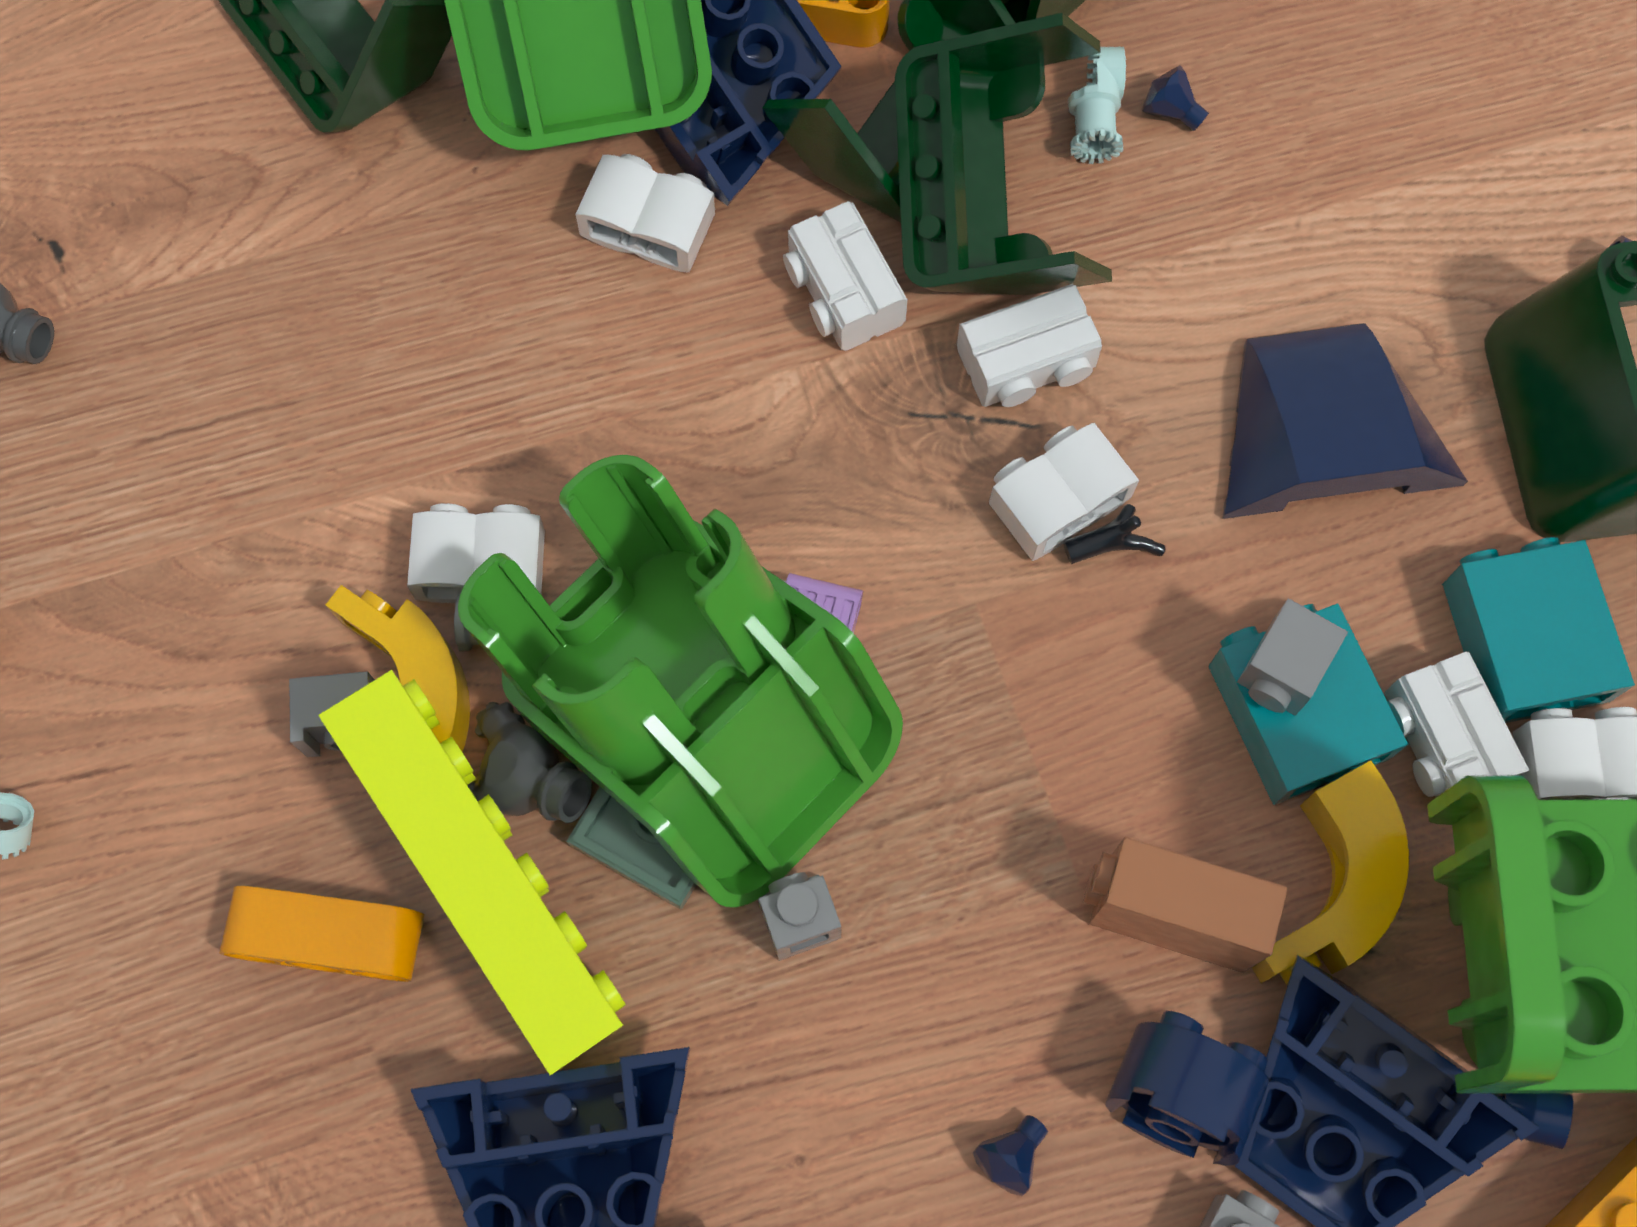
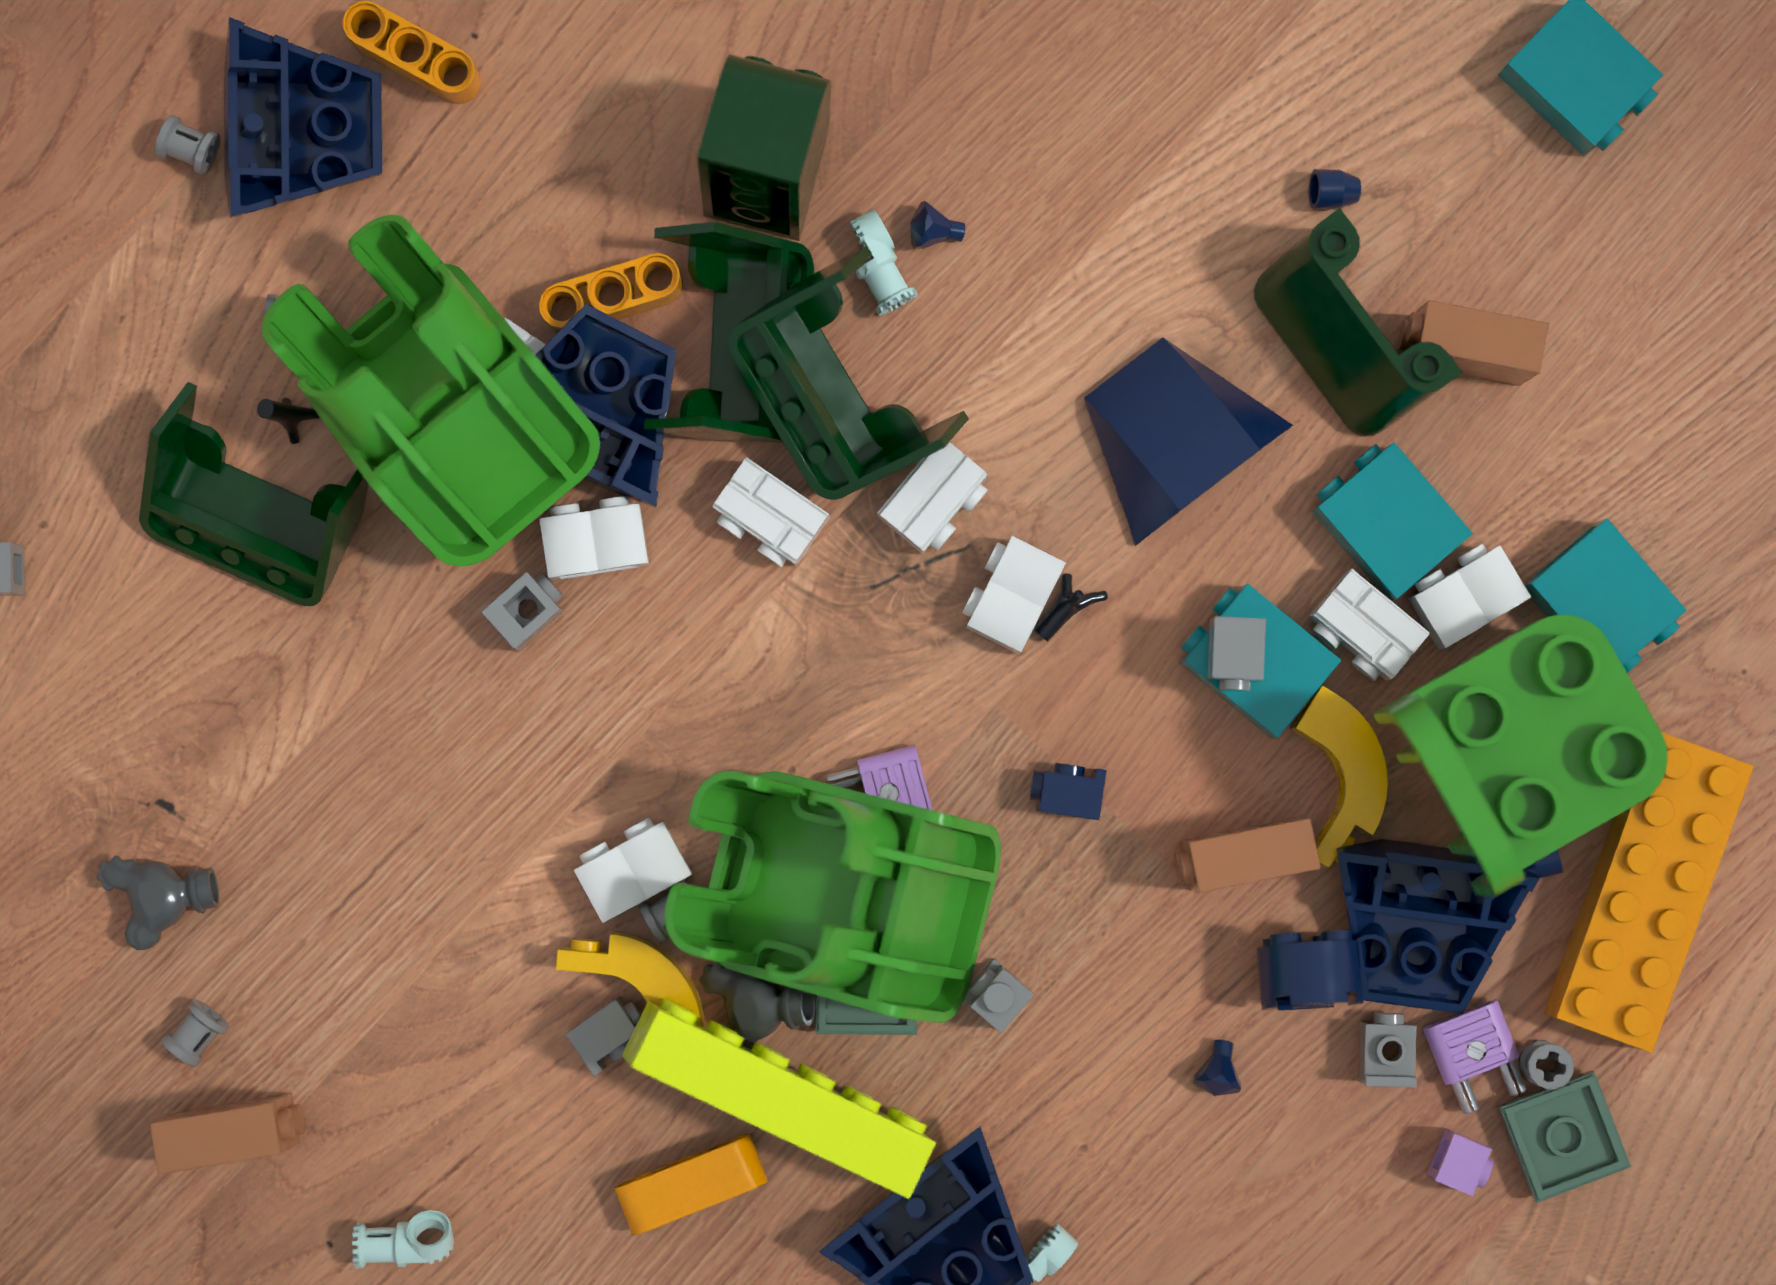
camera: 30 degrees left, 15 degrees up
(532, 238) = (506, 615): none -> light grey brick
(1008, 730) = (1068, 791): none -> dark blue brick

